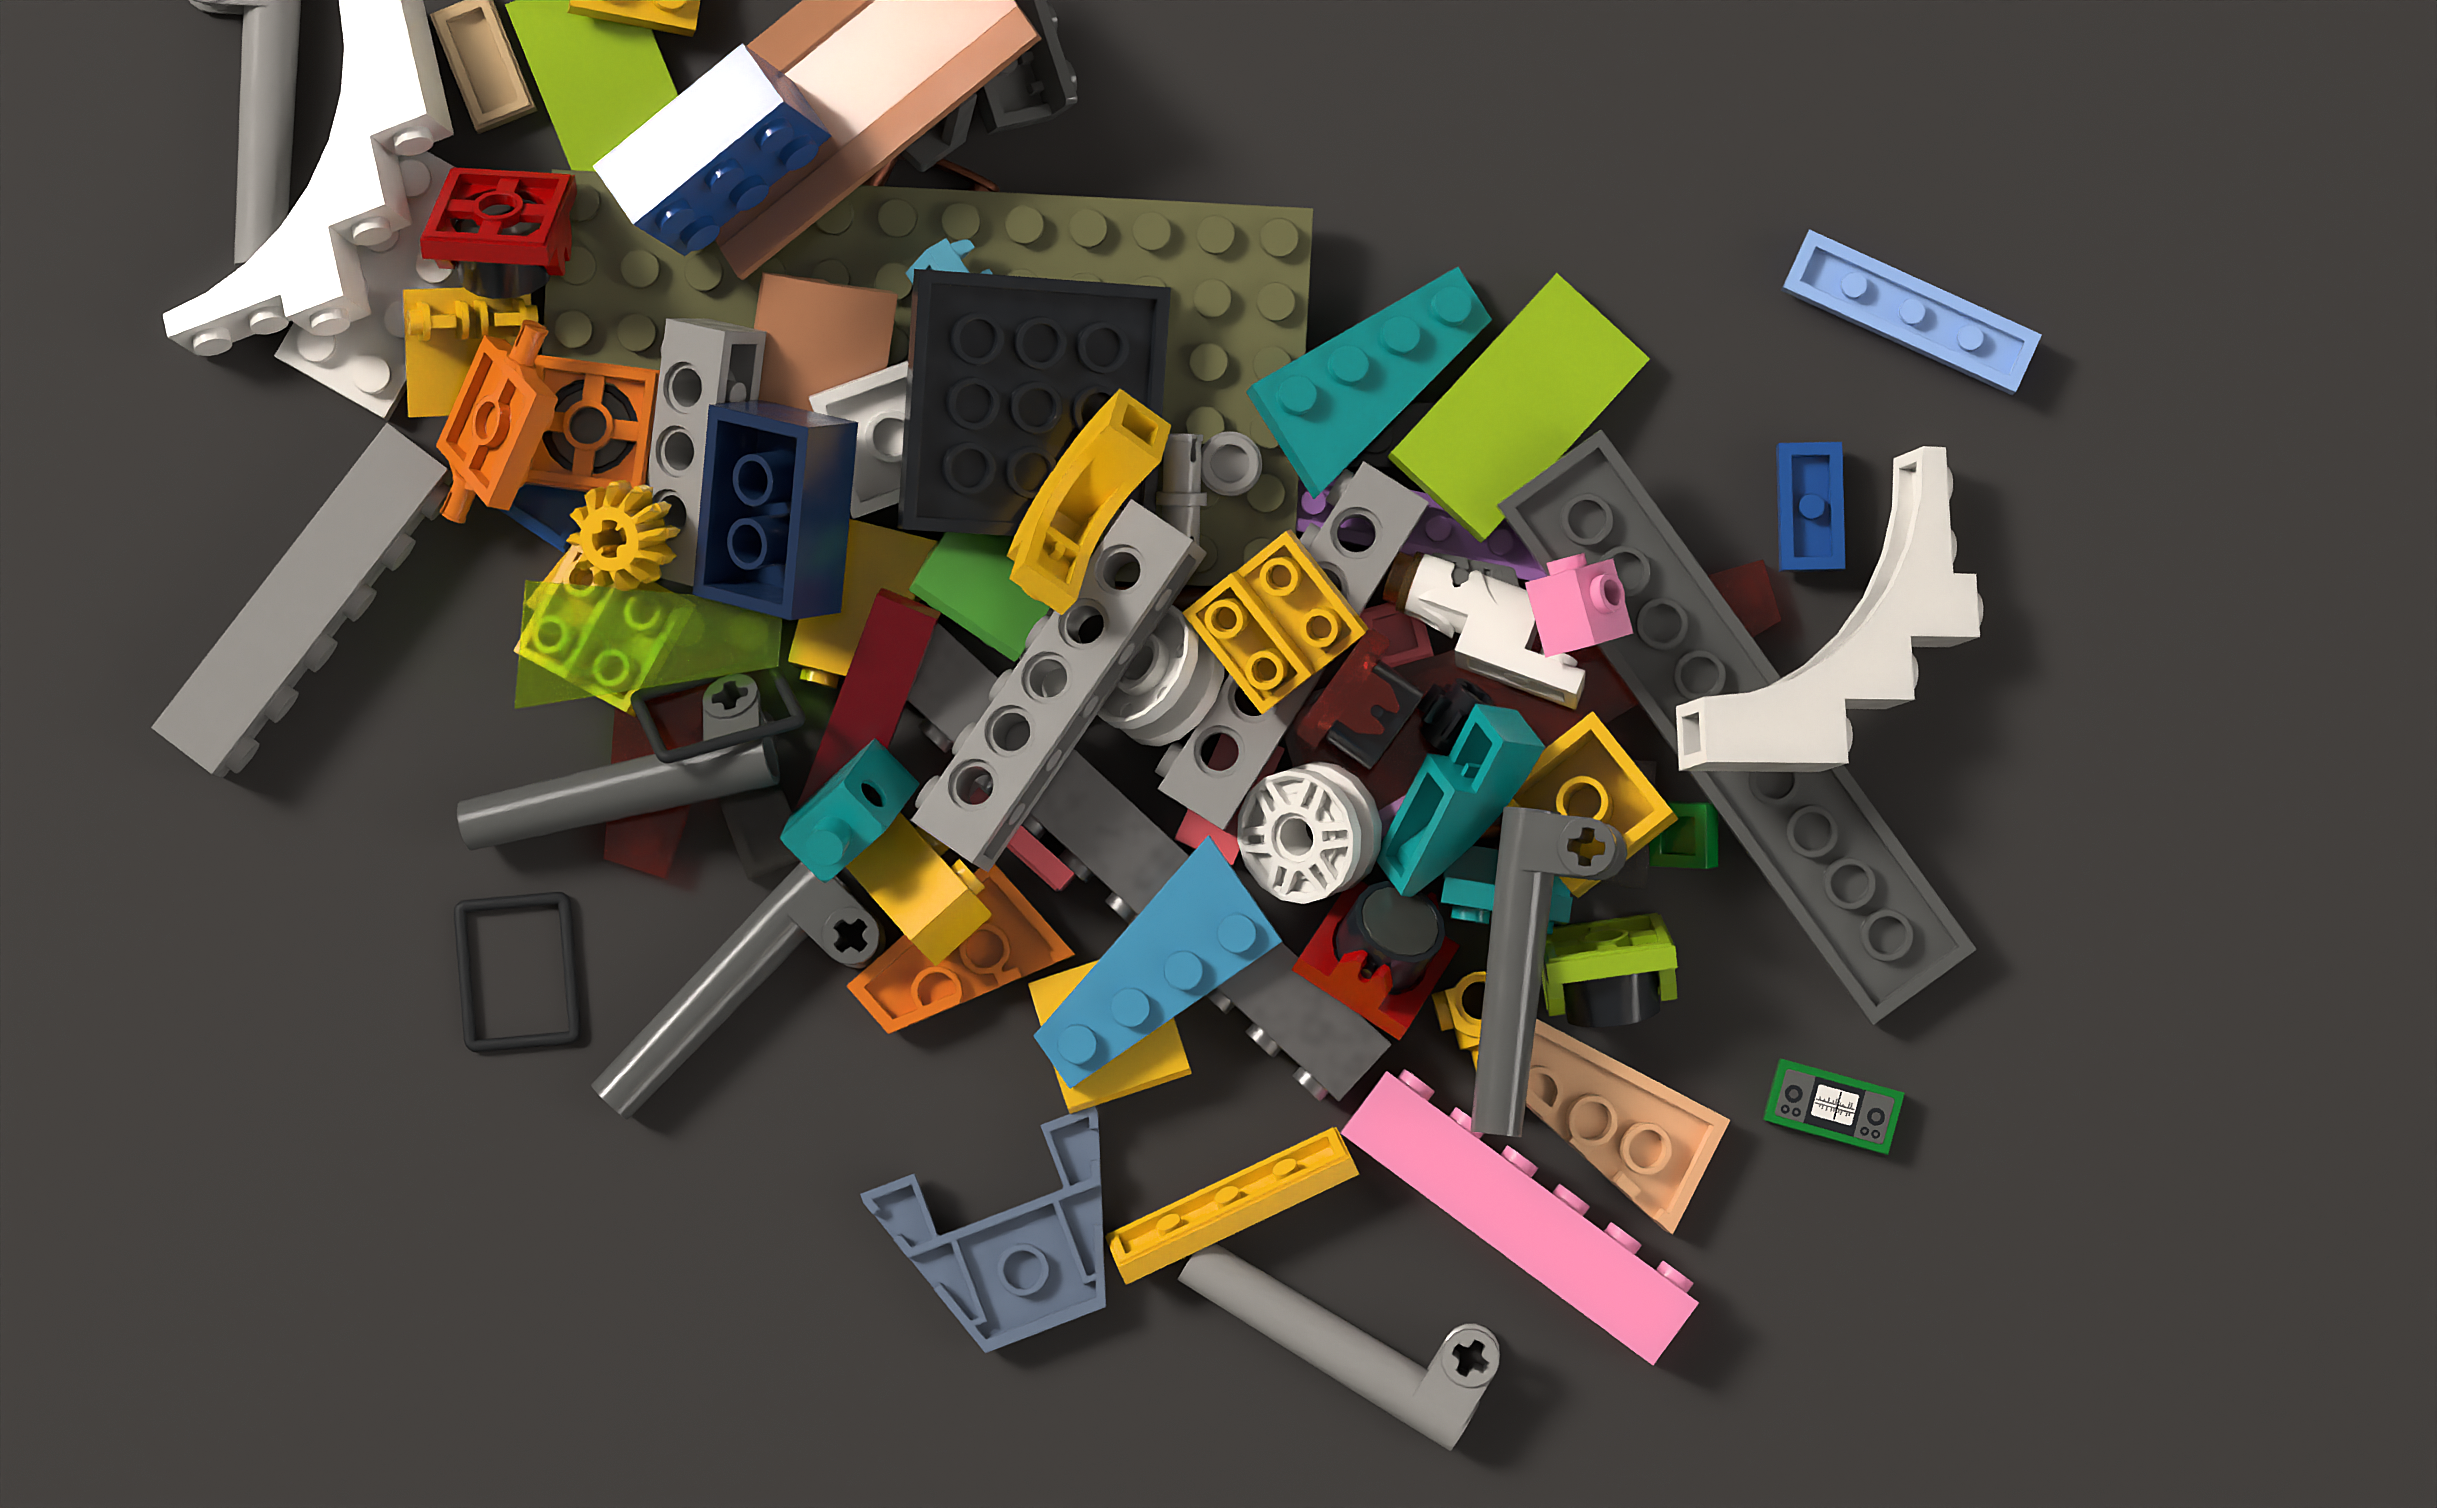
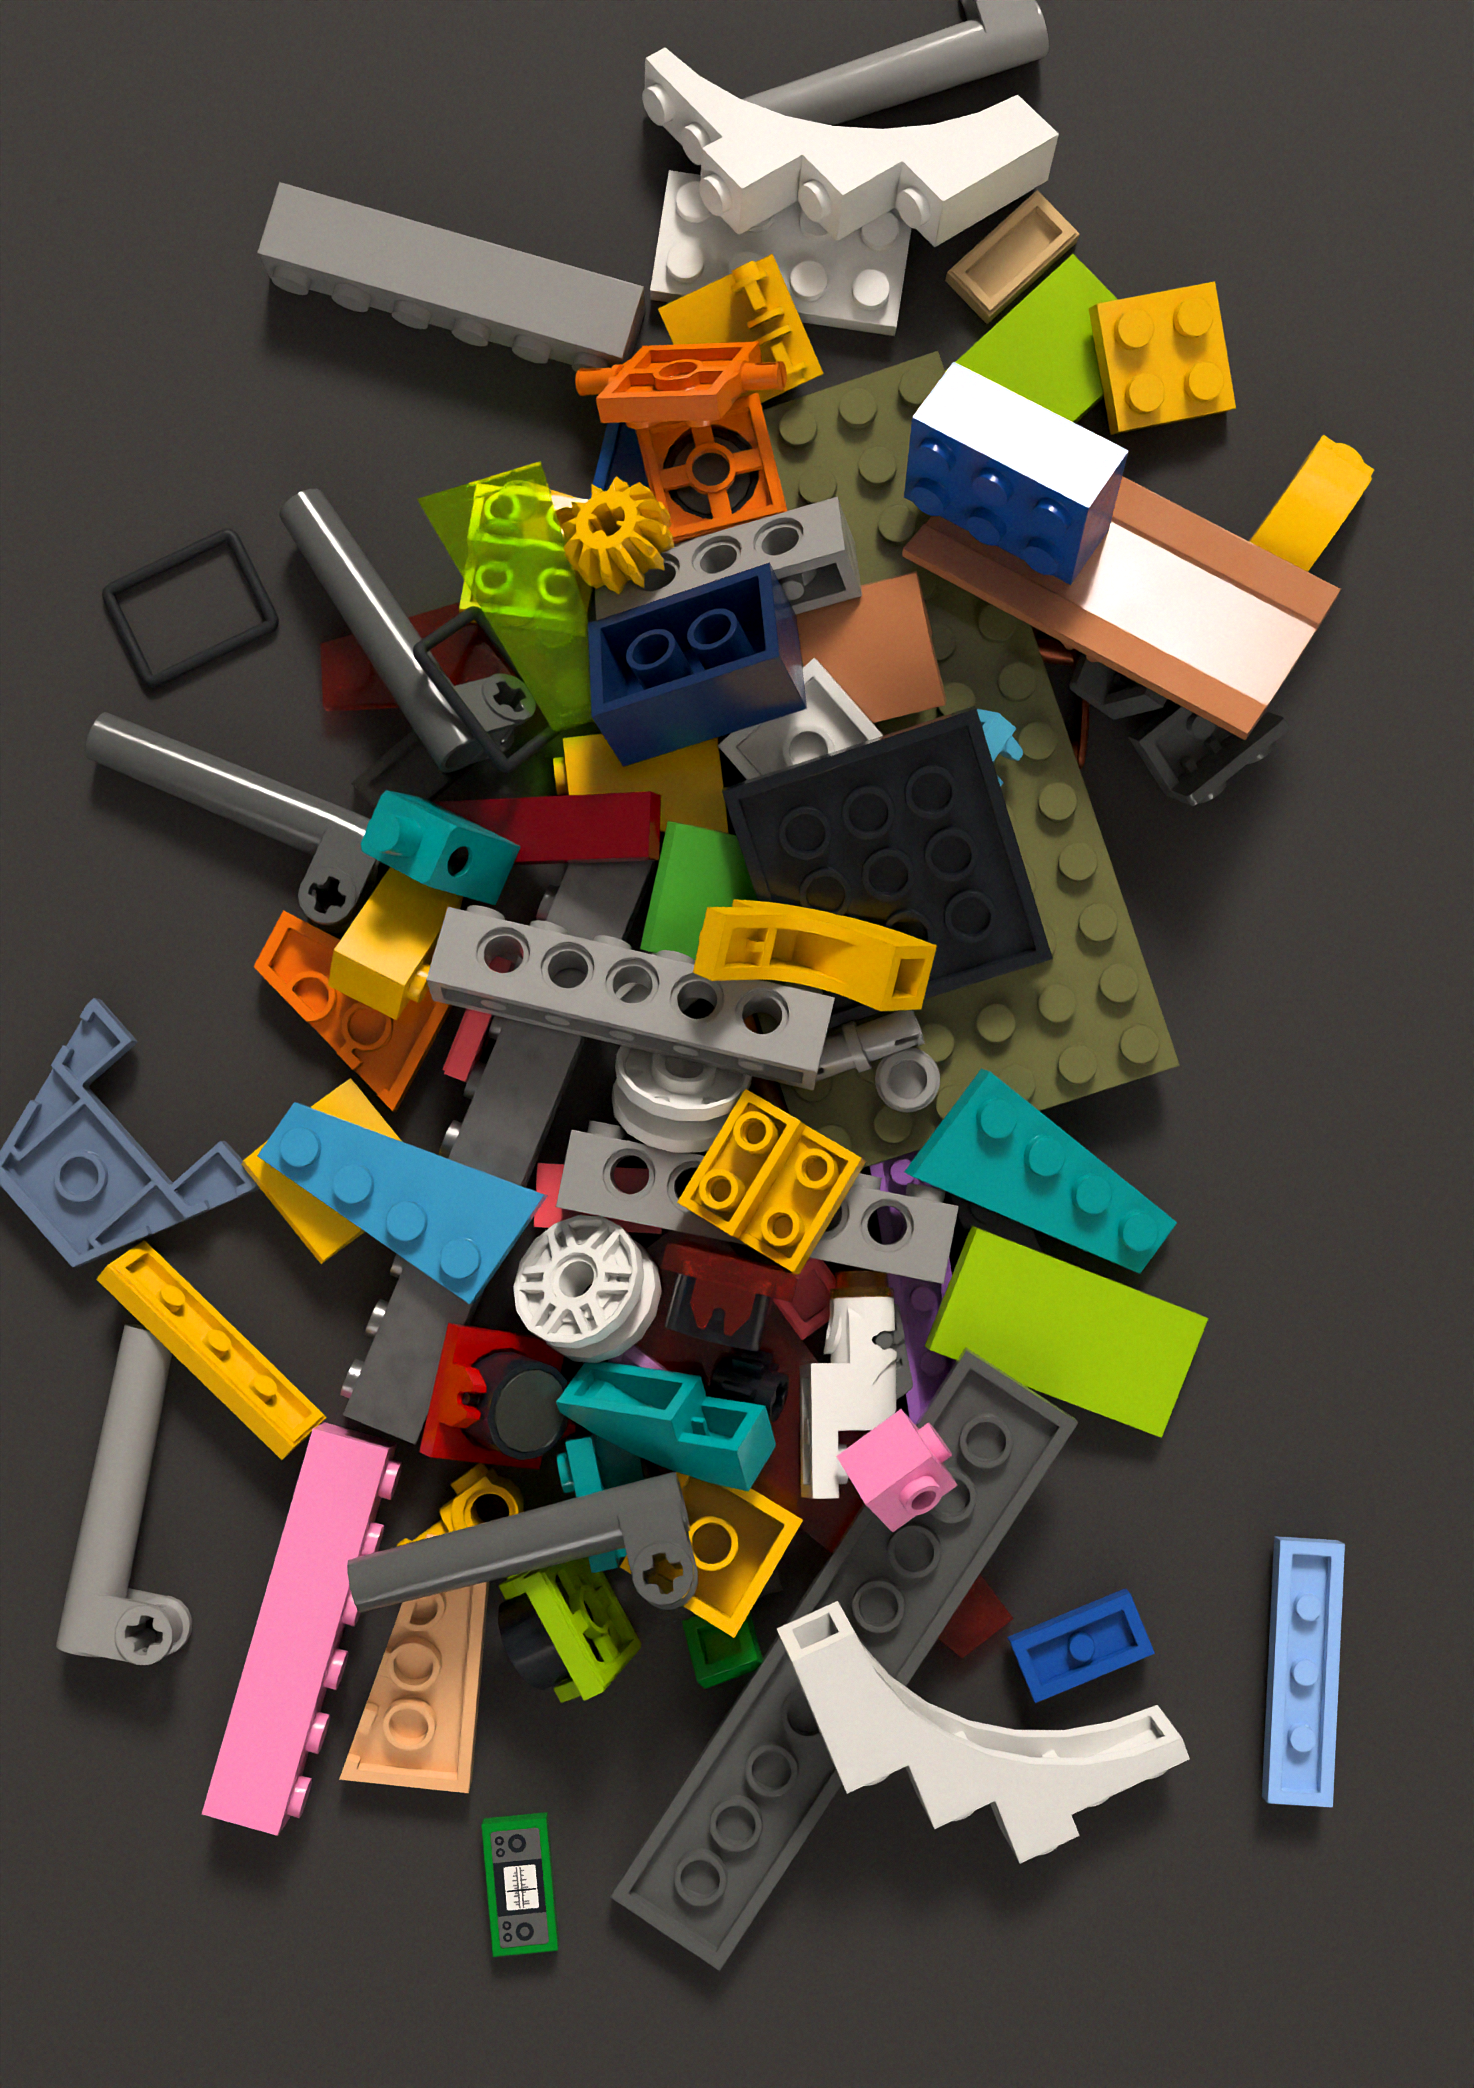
camera: 60 degrees right, 0 degrees up
(494, 236) = (852, 317): red piece -> none

